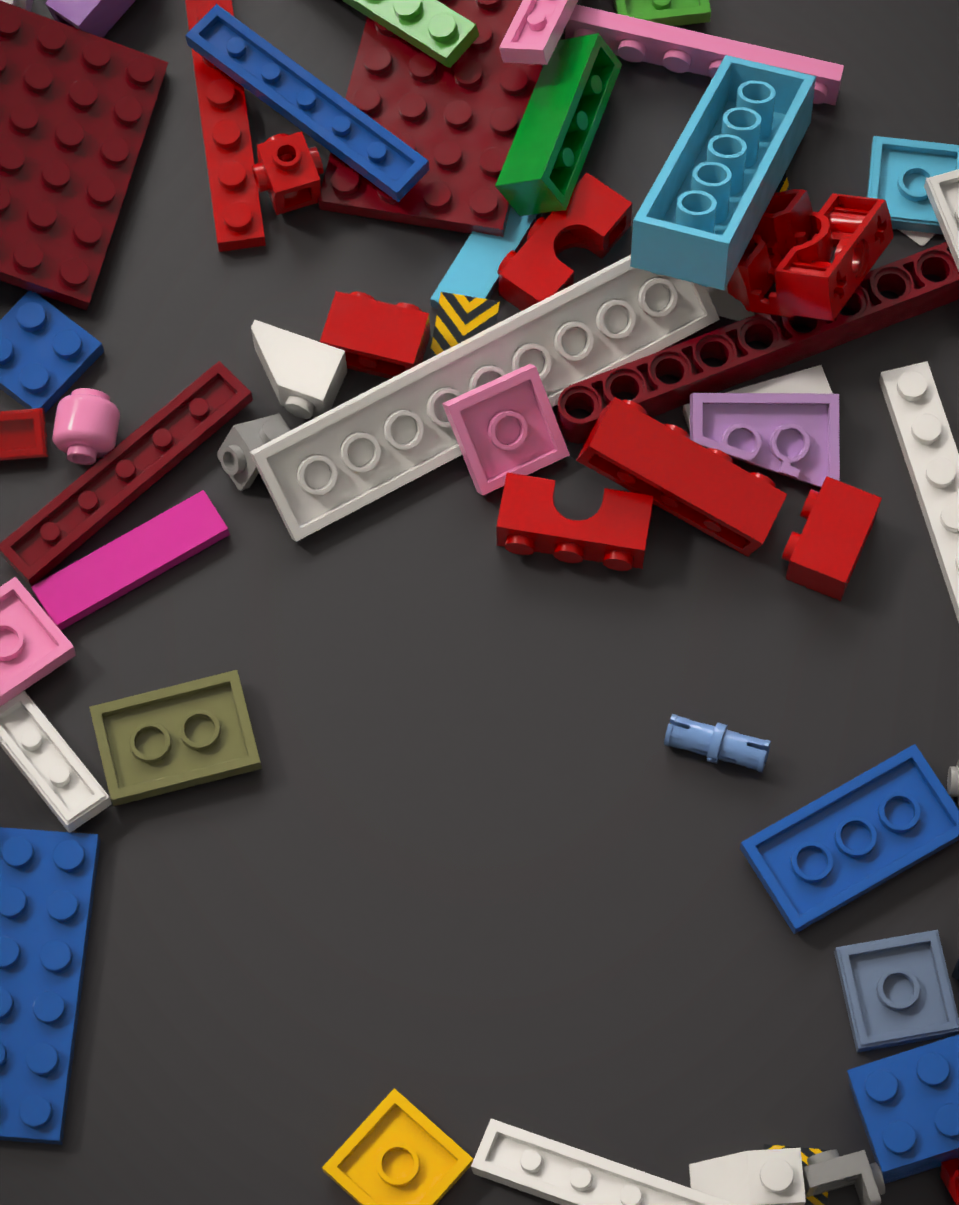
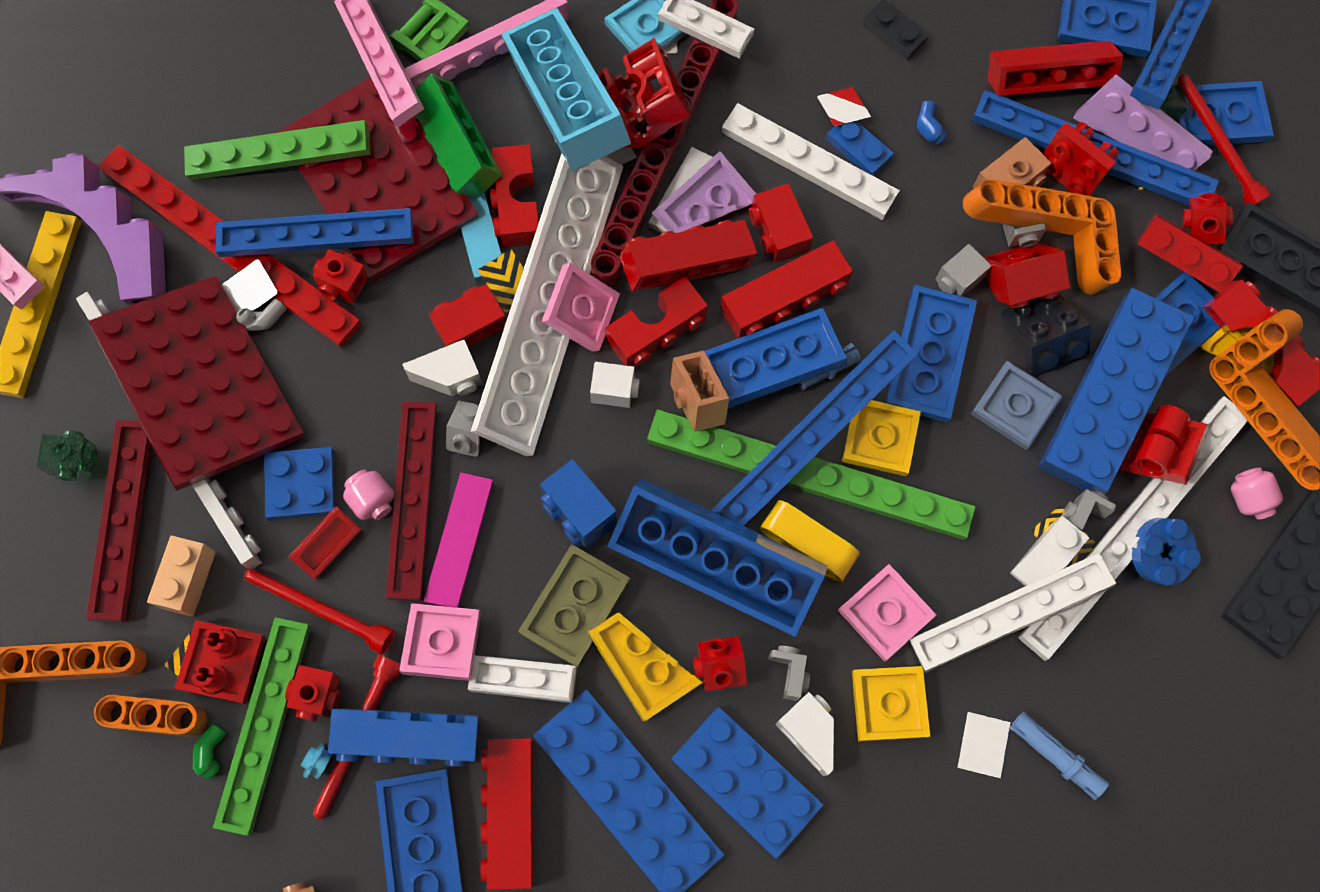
camera: 50 degrees left, 5 degrees up
(161, 1094) = (747, 782): none -> blue plate
(166, 148) = (261, 320): none -> light grey arm
(175, 864) = (642, 669): none -> yellow wing
(185, 105) = (250, 287): none -> white sticker
(259, 941) = (720, 663): none -> red brick
(280, 633) = (579, 505): none -> blue brick
(281, 1105) = (811, 731): none -> white slope
(326, 1035) = (797, 679): none -> light grey bracket
(370, 825) = (717, 556): none -> blue brick
(457, 545) = (613, 385): none -> white brick
(494, 910) = (806, 536): none -> yellow beam
(497, 1067) = (886, 612): none -> bright pink plate
(535, 632) = (699, 391): none -> nougat brick
(578, 848) = (817, 476): none -> bright green plate
(603, 790) = (816, 429): none -> blue plate
(660, 676) = (777, 357): none -> blue plate
(696, 875) = (882, 438): none -> yellow plate
(758, 617) = (786, 290): none -> red brick

